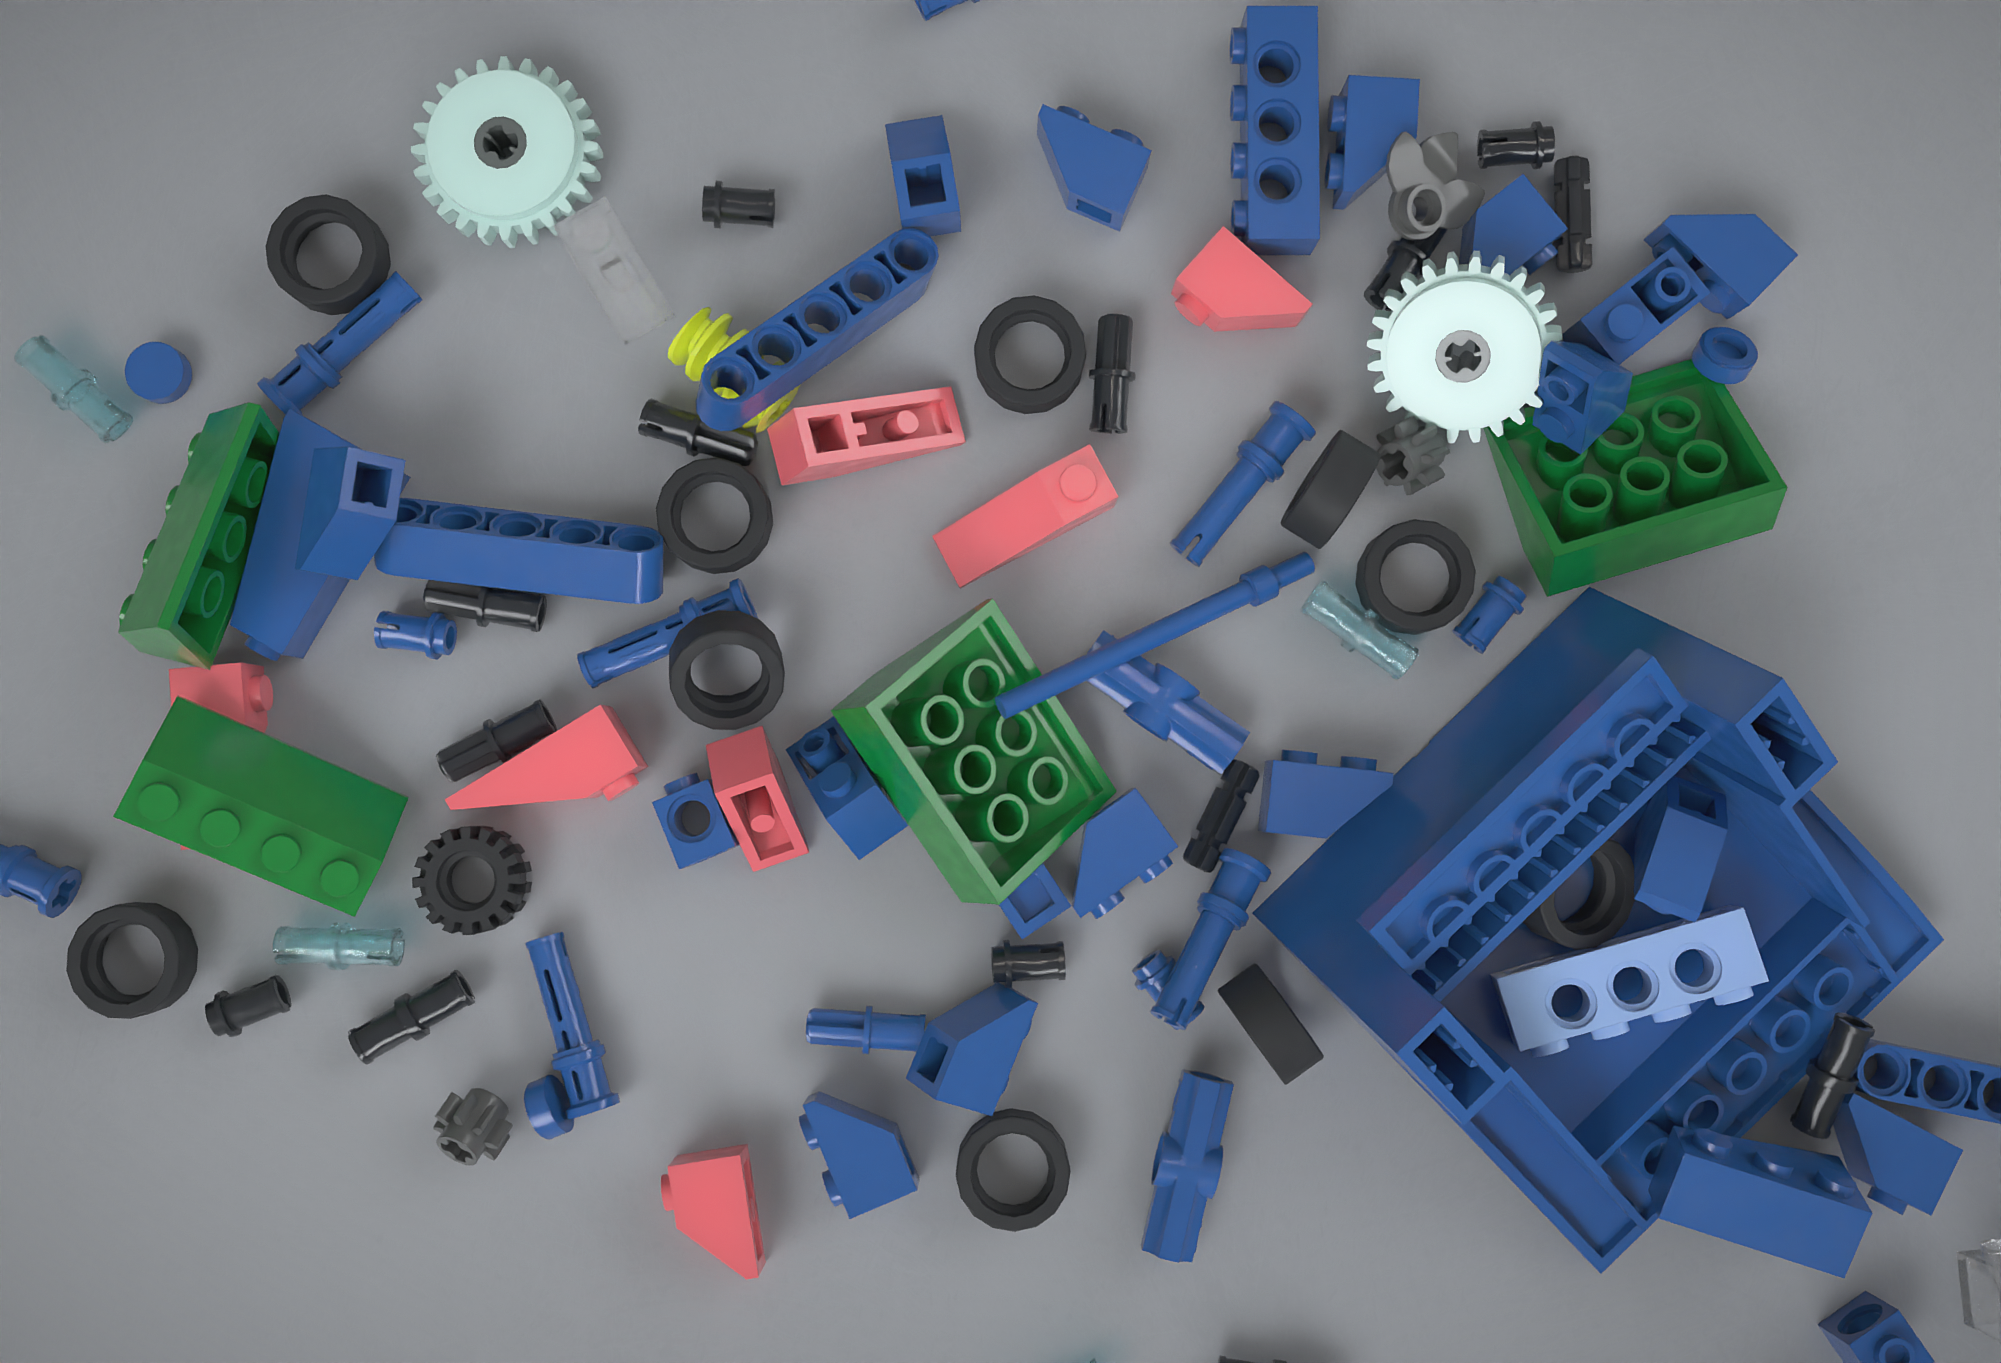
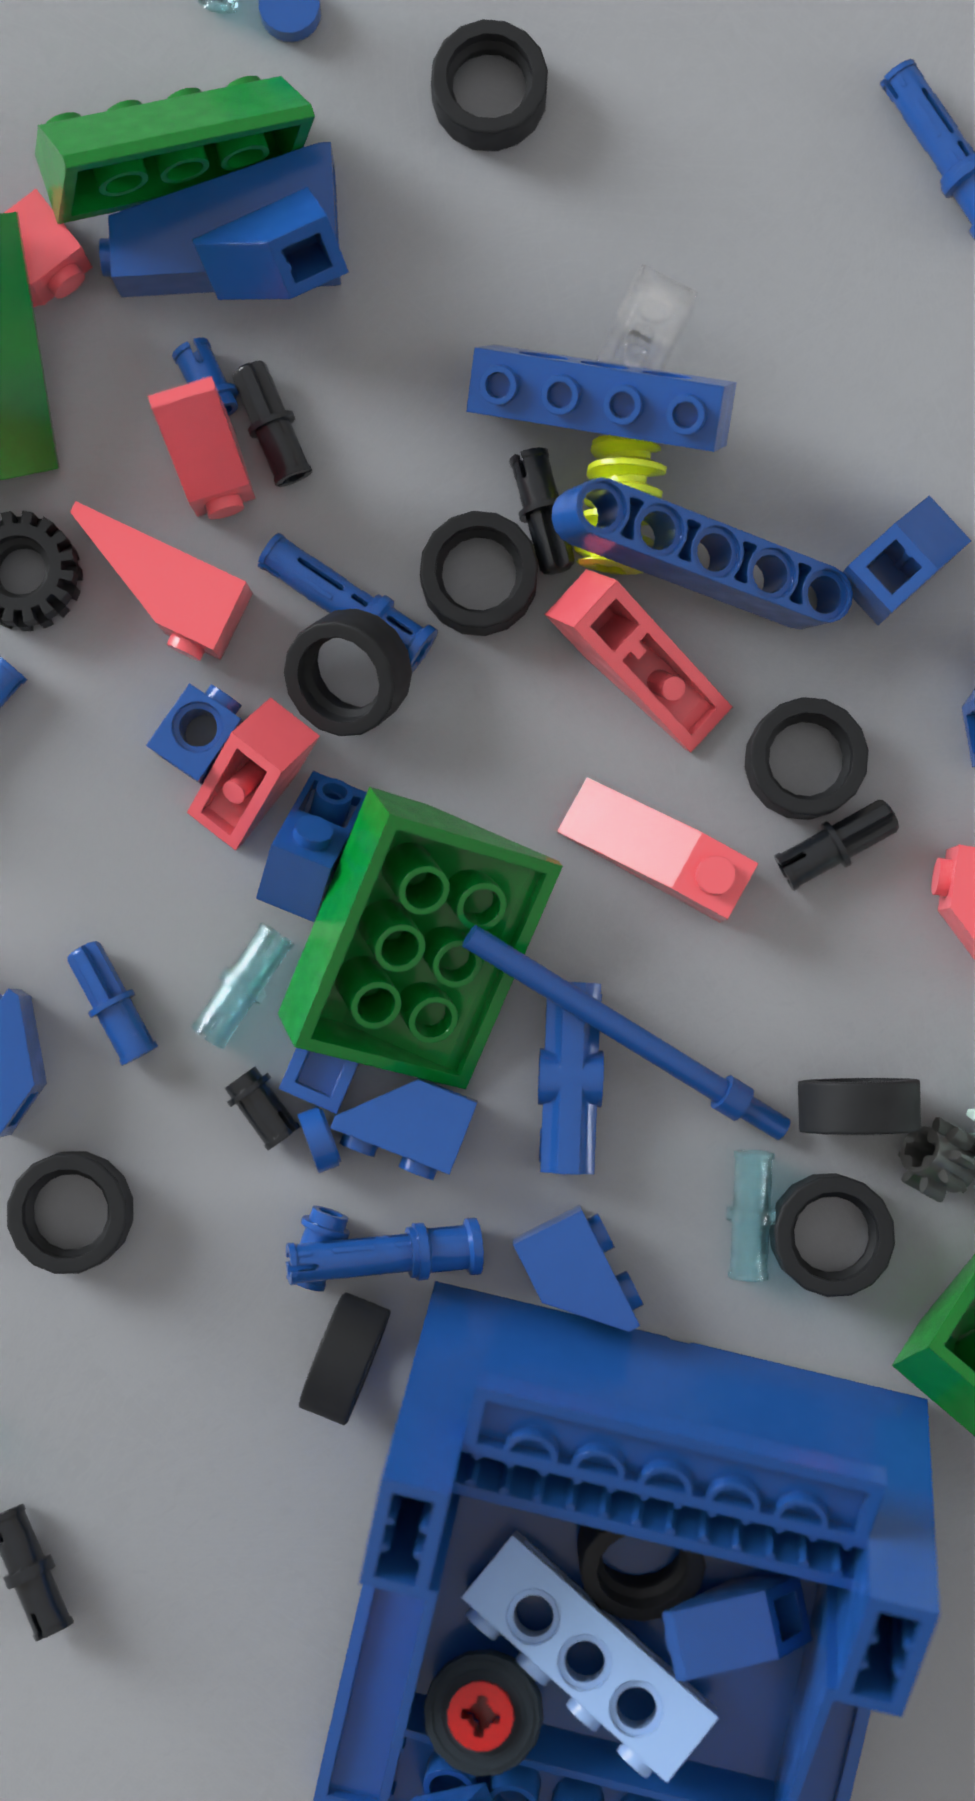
camera: 60 degrees right, 0 degrees up
(321, 363) = (390, 142): blue pin -> none
(470, 668) = (203, 448): none -> coral slope
(473, 129) = (690, 138): light aqua gear -> none
(496, 741) = (156, 512): black axle -> none
(523, 551) = (338, 427): blue beam -> none
(638, 327) = (601, 397): none -> blue brick
(738, 205) = (769, 413): black pin -> none
(921, 915) = (242, 985): none -> clear light blue pin
(973, 1048) = (153, 1107): blue slope -> none
(1082, 932) = (319, 1139): none -> blue tile
(1187, 1166) = (172, 1365): blue piece -> none
(1221, 815) = (503, 1196): black axle -> none
(1258, 462) = (844, 1026): blue pin -> none
(1490, 613) = (843, 1324): blue pin -> none
(1603, 1074) = (489, 1687): none -> black wheel

